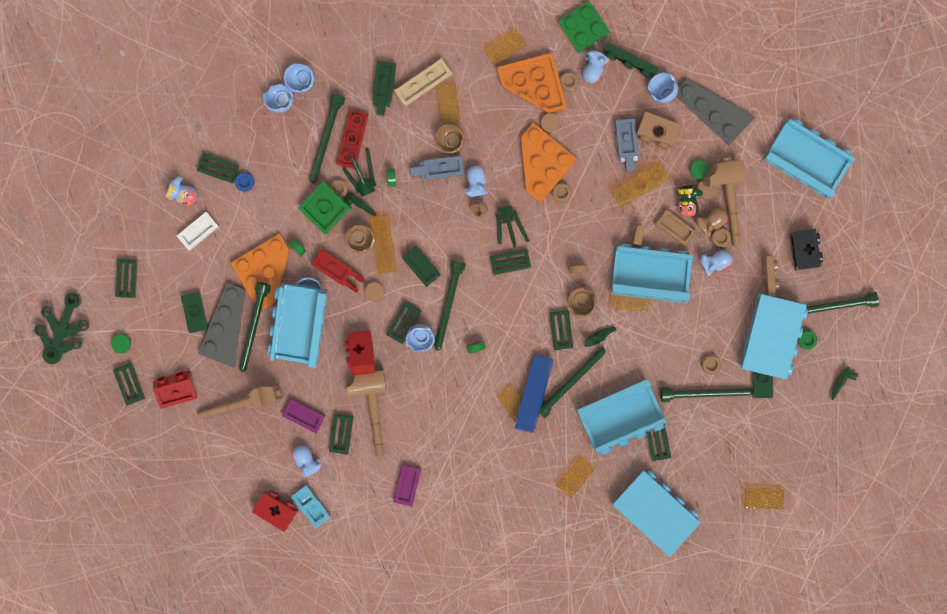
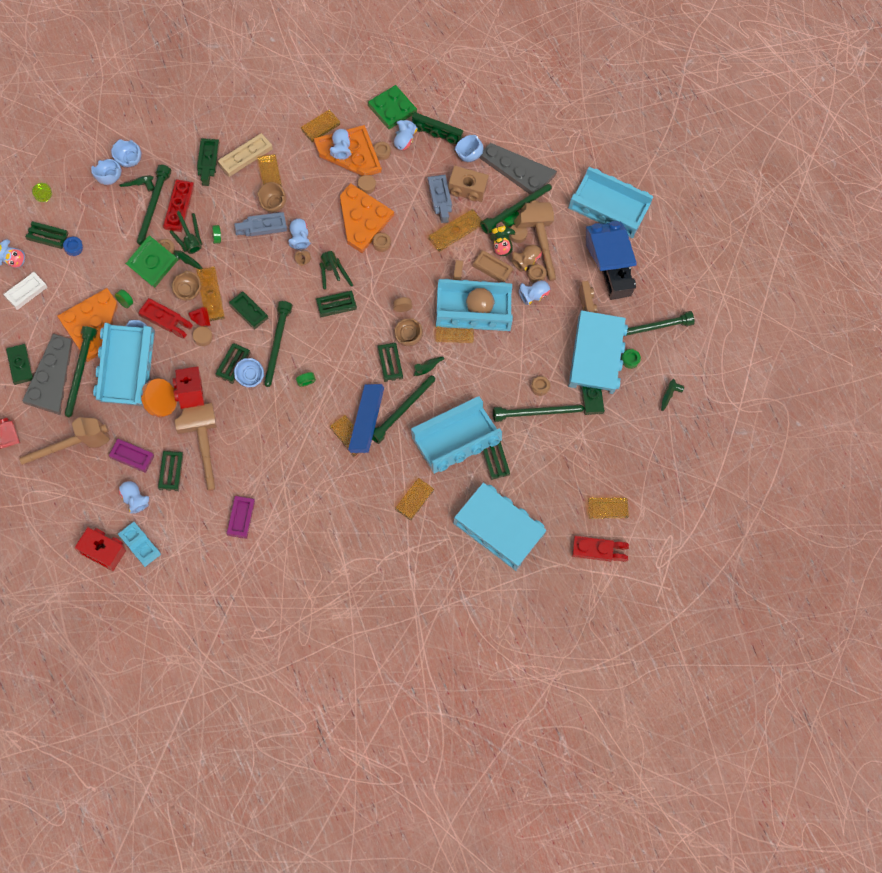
camera: 10 degrees left, 20 degrees down
(212, 117) = (42, 192): none -> clear neon green tile
(320, 108) = (147, 180): none -> dark green bar
(331, 361) = (158, 398): none -> orange tile
(373, 271) = (200, 316): none -> red tile
(526, 76) = (341, 142): none -> light blue animal
(658, 272) = (480, 301): none -> medium nougat hair
(676, 182) = (490, 223): none -> dark green piece
(749, 539) = (598, 549): none -> red hinge
(801, 219) = (610, 245): none -> blue slope

